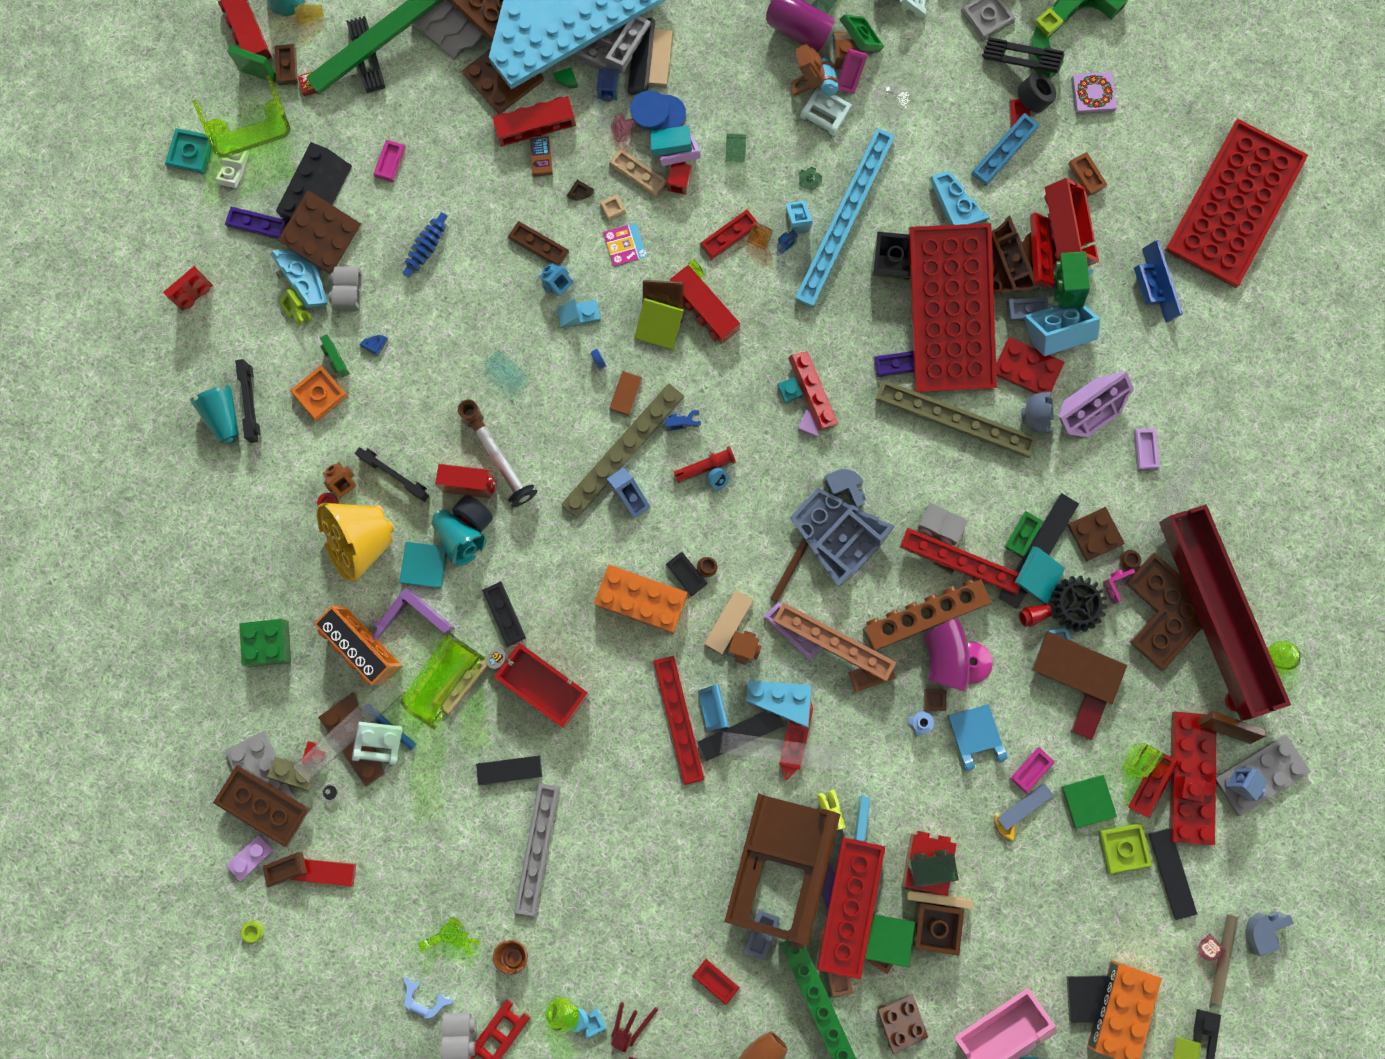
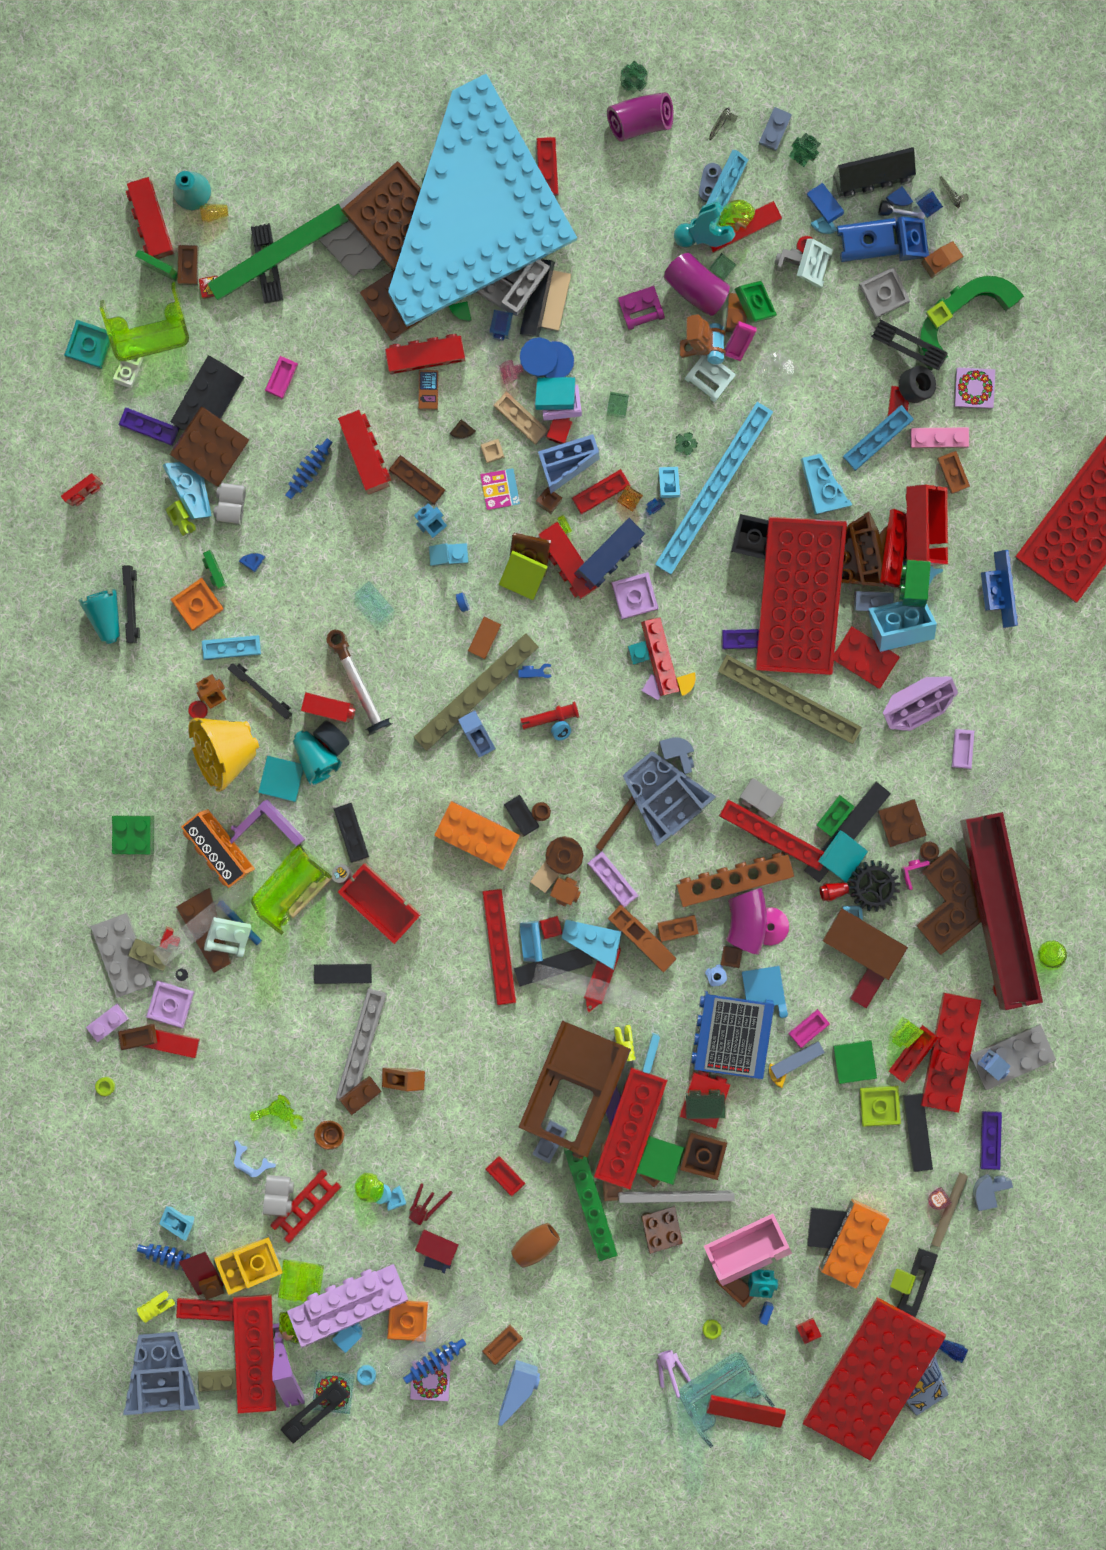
camera: 10 degrees right, 10 degrees up
(261, 806) = (121, 980): reddish brown tile -> none
(320, 829) = (170, 1004): none -> lavender tile
(358, 434) = (231, 647): none -> medium azure tile
(481, 218) = (363, 451): none -> red brick
(541, 907) = (360, 1095): none -> reddish brown plate
(588, 881) = (403, 1079): none -> dark orange slope
(676, 247) = (548, 501): none -> reddish brown plate
(691, 204) = (568, 460): none -> medium blue wedge
(733, 691) = (551, 927): none -> red tile
(738, 610) = (564, 855): none -> reddish brown tile
(746, 49) = (638, 302): none -> magenta plate
(746, 289) = (609, 553): none -> dark blue brick
(778, 333) = (634, 595): none -> lavender tile
(834, 642) = (647, 895): nougat plate -> none
(836, 690) = (642, 938): none -> dark orange slope
(844, 415) = (686, 683): none -> yellow tile
(913, 981) = (676, 1196): none -> light grey tile
(939, 899) = (700, 1128): tan tile -> none
(950, 787) = (732, 1036): none -> panel
(1039, 412) = (867, 704): sand blue cylinder -> none
(1067, 143) = (939, 437): none -> bright pink plate
(1231, 727) = (990, 1013): reddish brown tile -> none
(1255, 873) = (991, 1140): none -> dark purple tile

